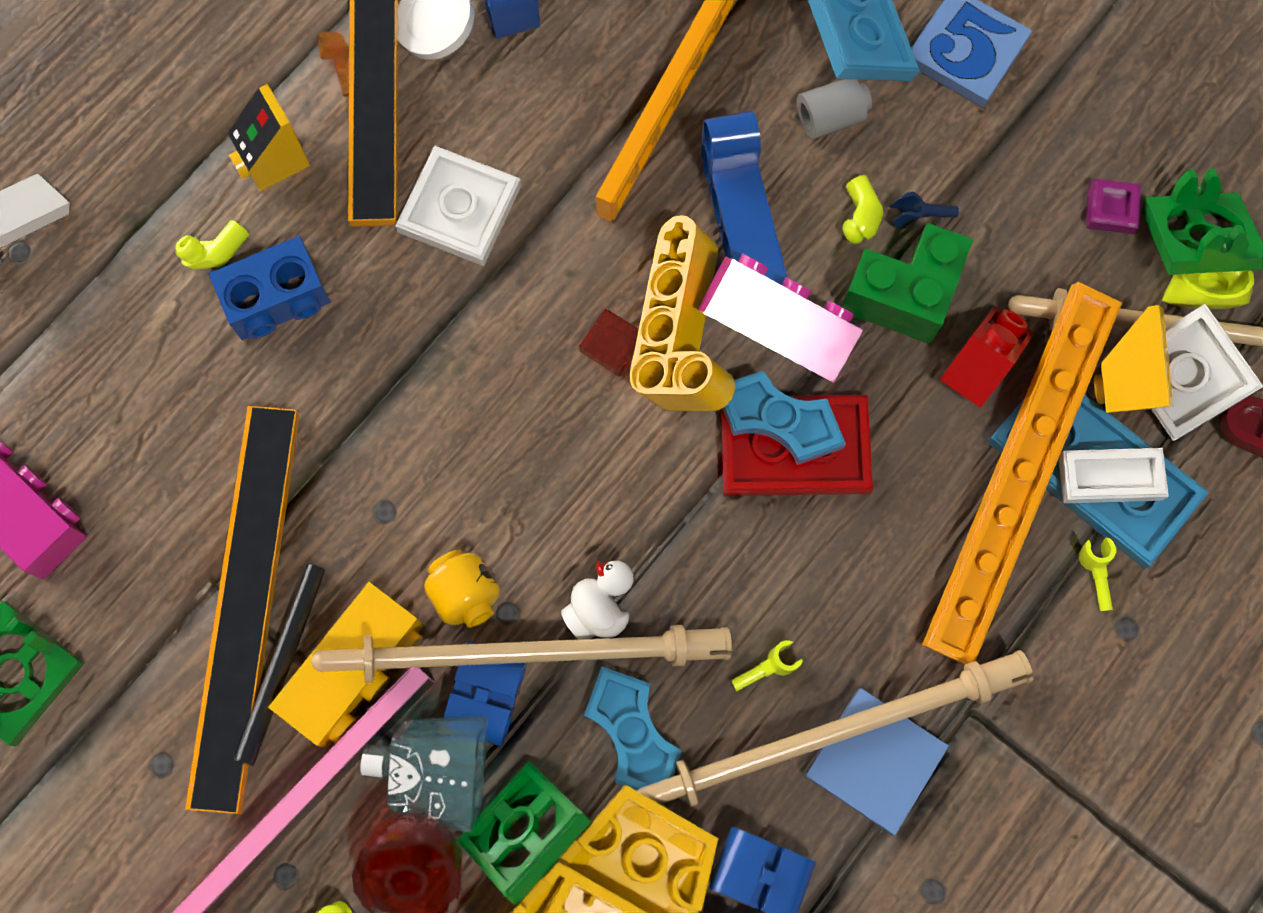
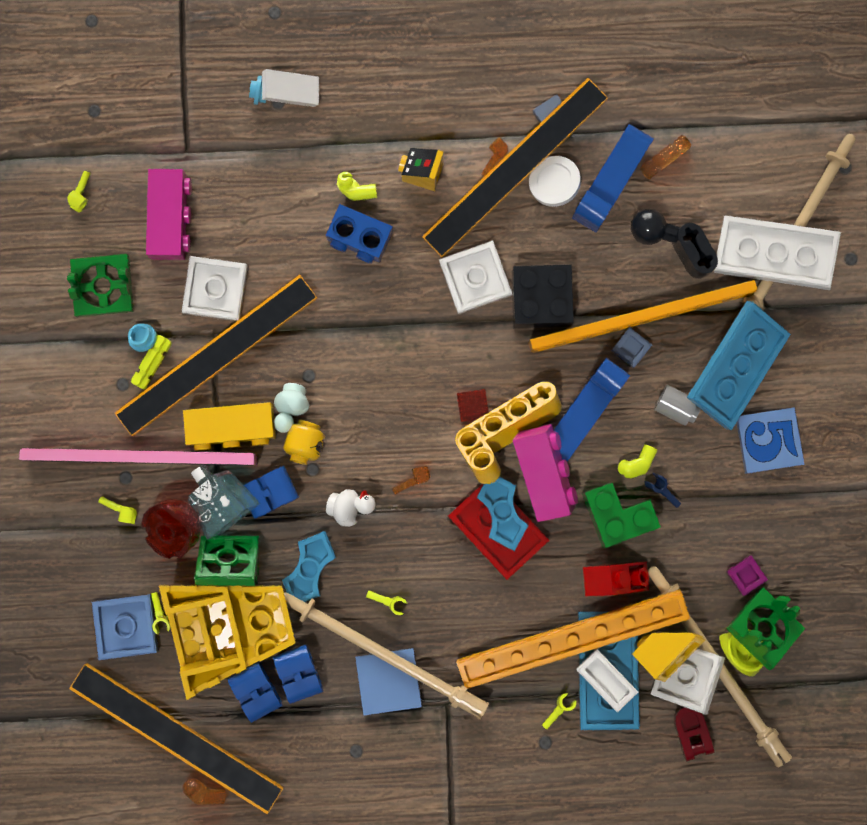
camera: 50 degrees right, 10 degrees up
(124, 679) = (142, 337): none -> medium azure plate
(159, 530) = (214, 288): none -> white tile
(169, 697) = (151, 362): none -> neon yellow axle
(279, 665) = (205, 395): black bar -> none
(394, 563) = (289, 403): none -> light aqua animal
(556, 143) = (542, 296): none -> black brick
(642, 481) = (420, 474): none -> clear orange hand
(674, 645) = (360, 554): tan bar -> none
(712, 99) = (631, 347): none -> sand blue tile

